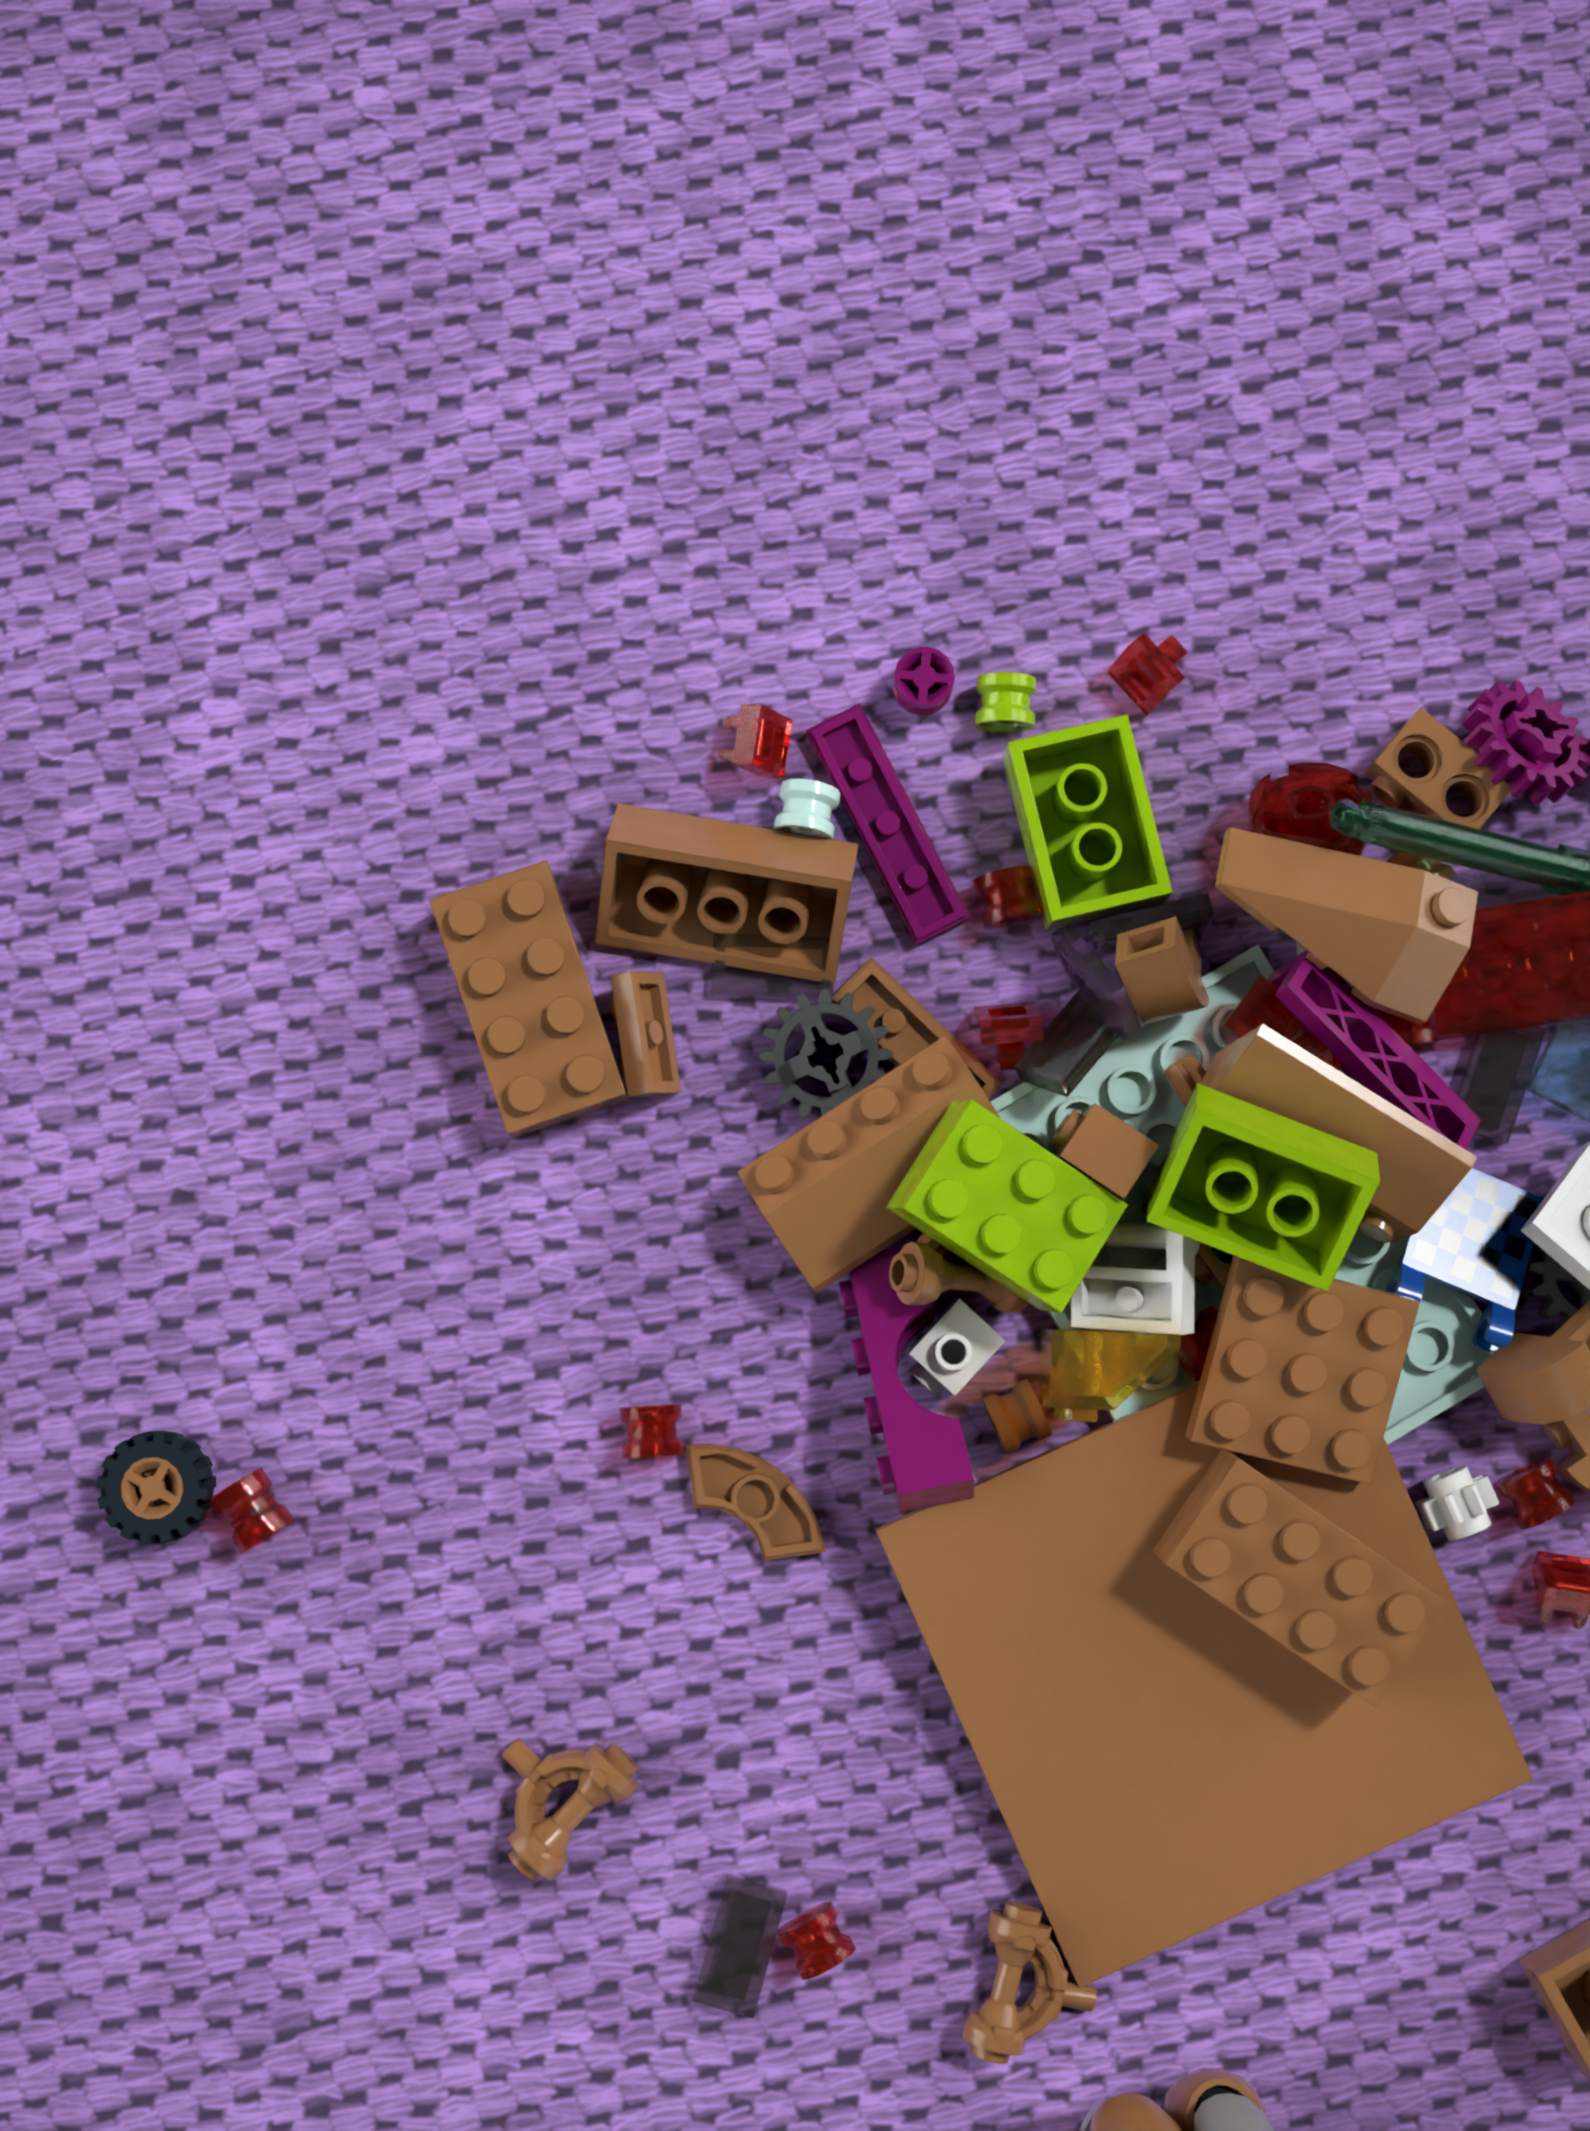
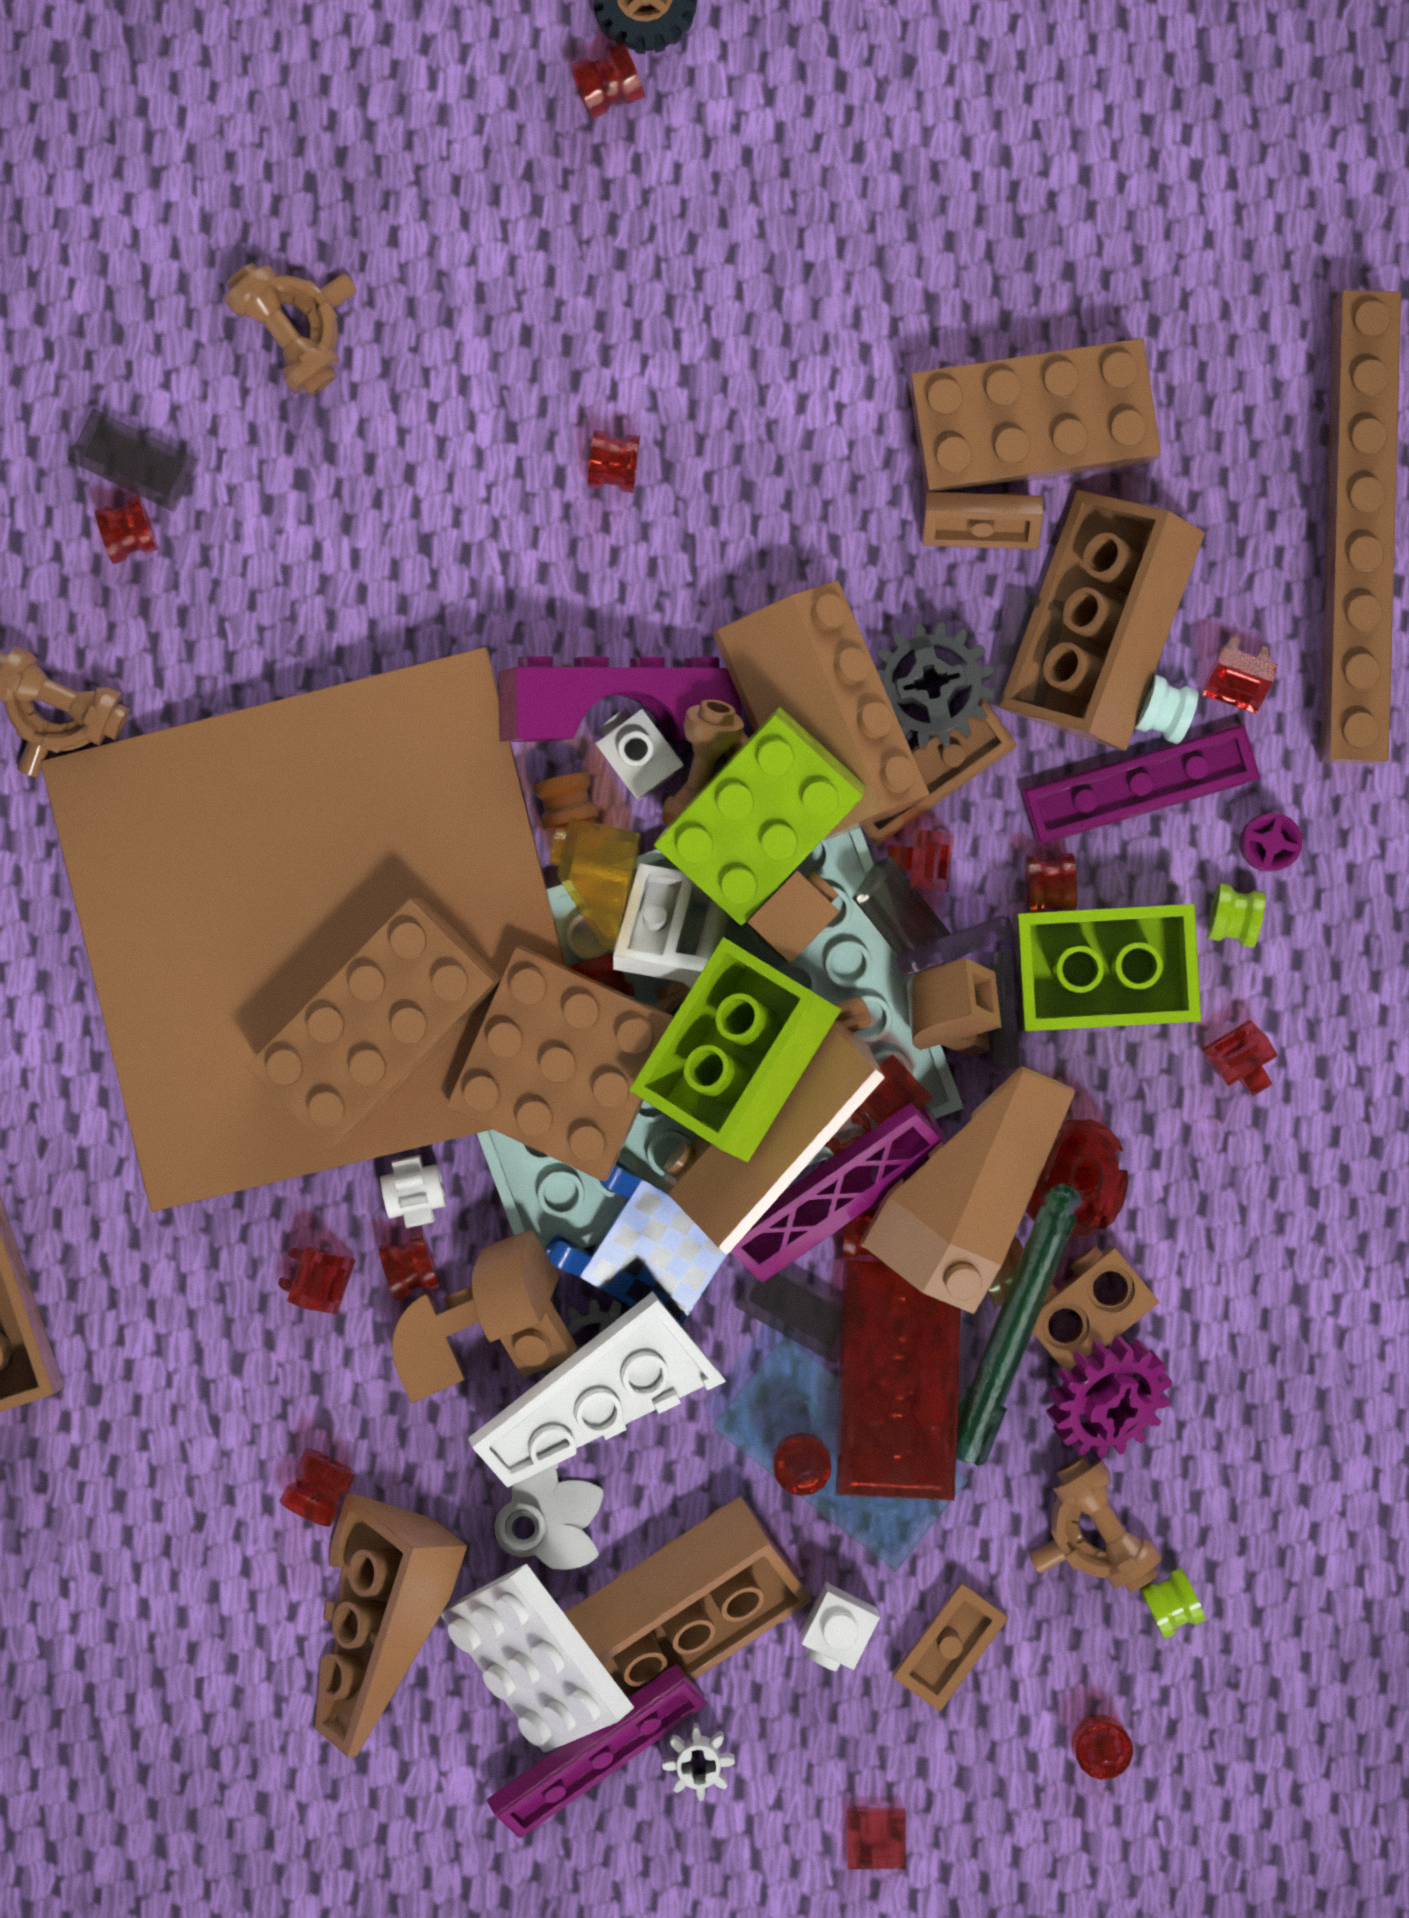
camera: 105 degrees right, 5 degrees up
(584, 646) = (1360, 527): none -> medium nougat brick
(757, 1496) = (536, 549): medium nougat tile -> none

